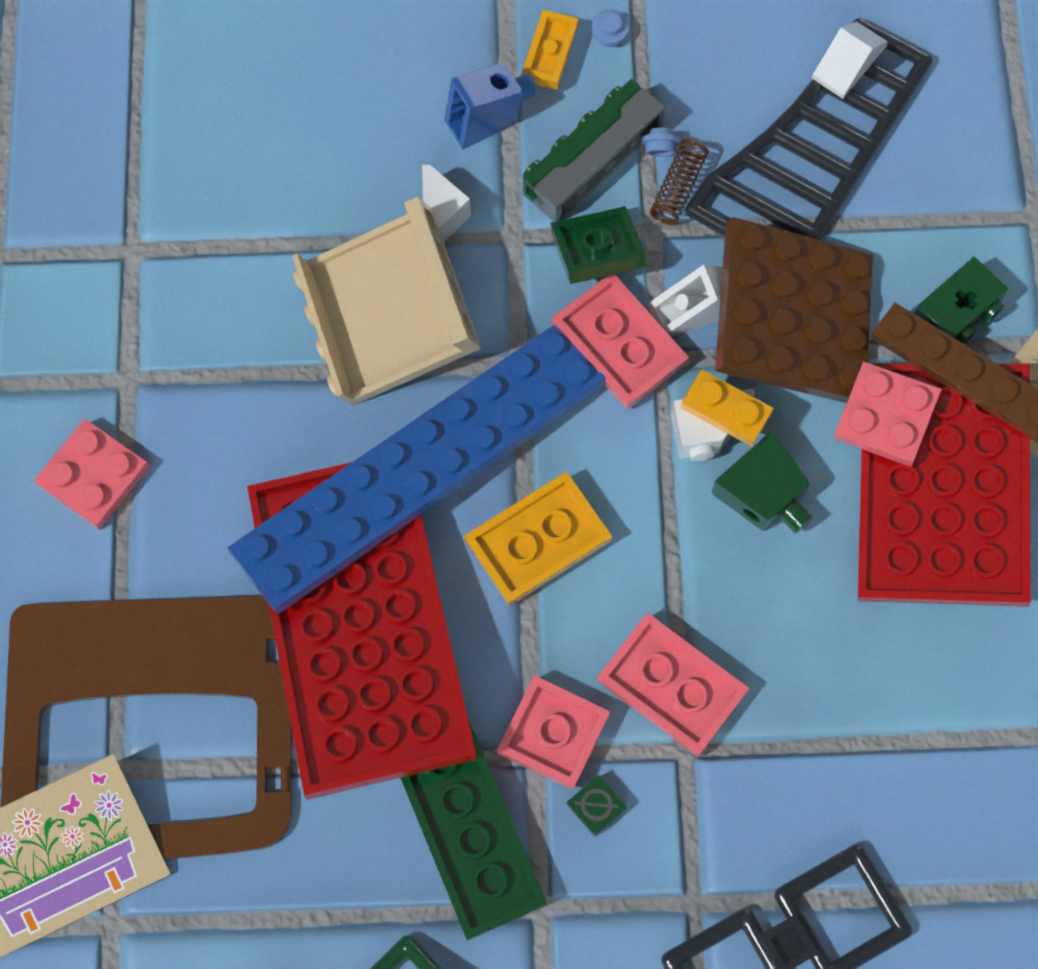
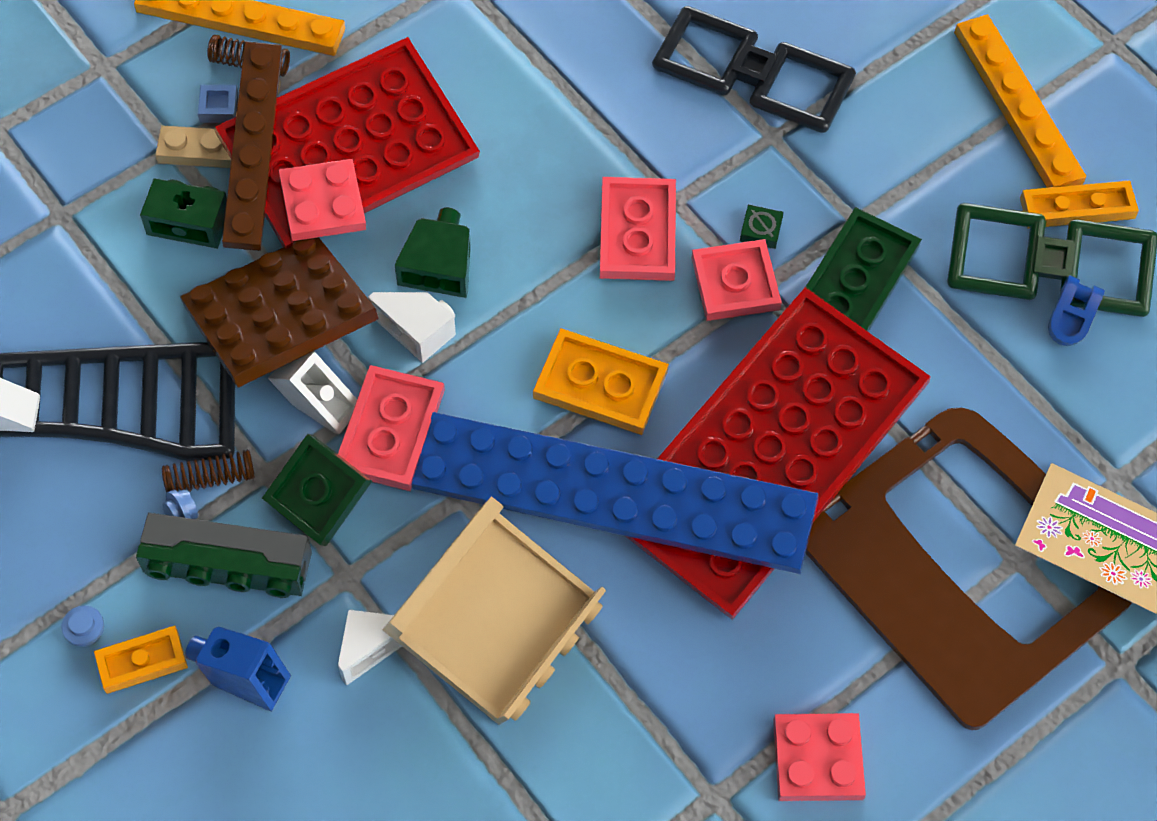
camera: 130 degrees left, 10 degrees down
(726, 408) = (400, 300): light orange plate -> none

